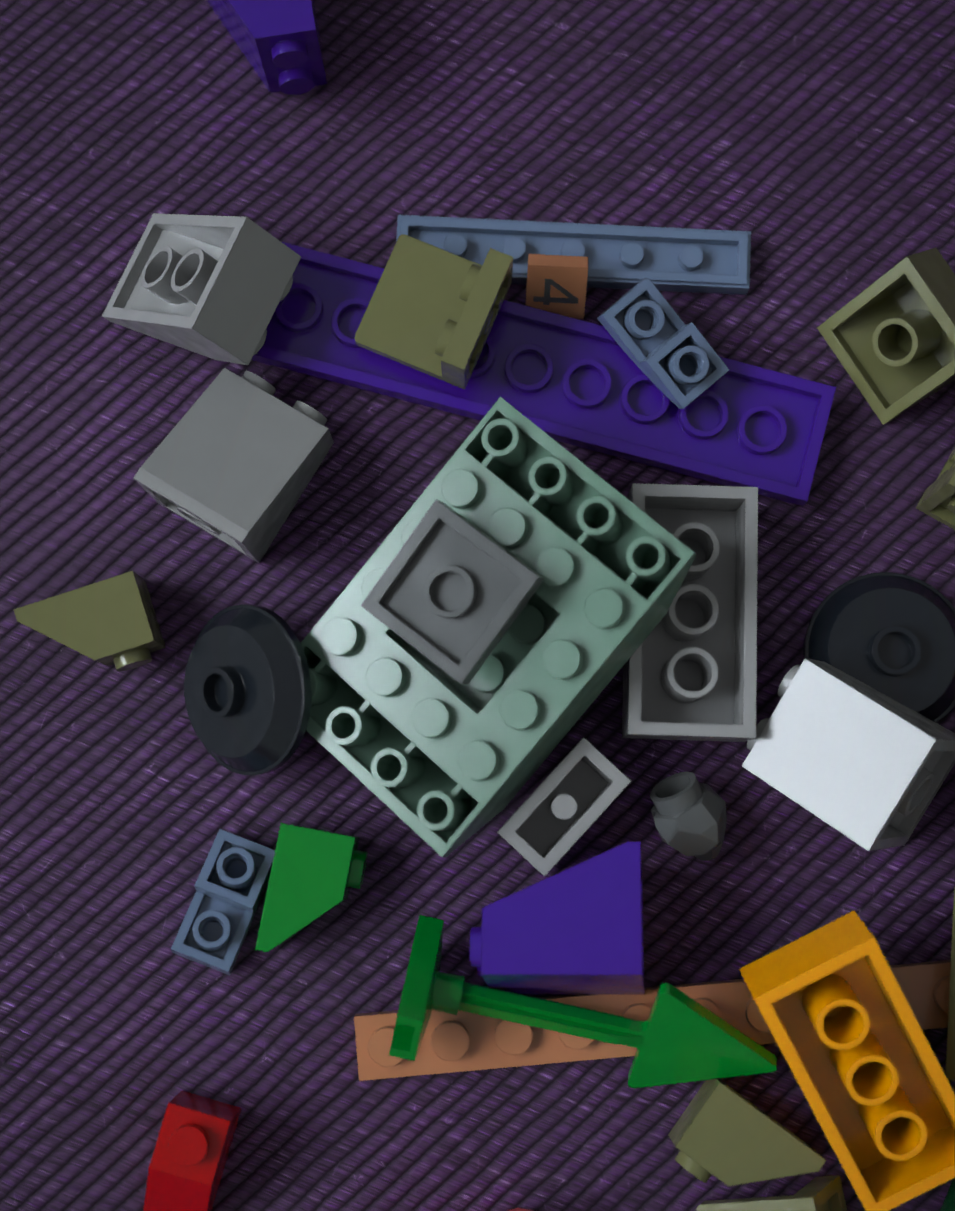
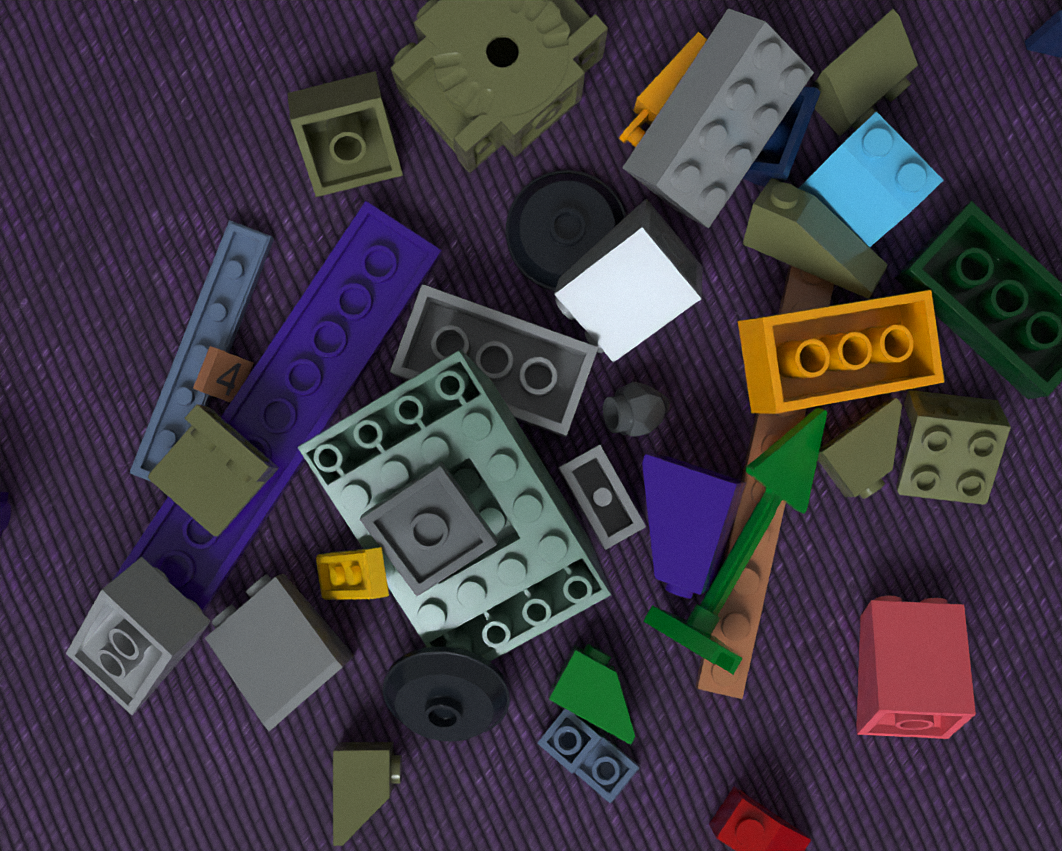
camera: 75 degrees left, 5 degrees up
(362, 520) = (352, 574): none -> yellow tile
(662, 345) = (293, 314): sand blue slope -> none

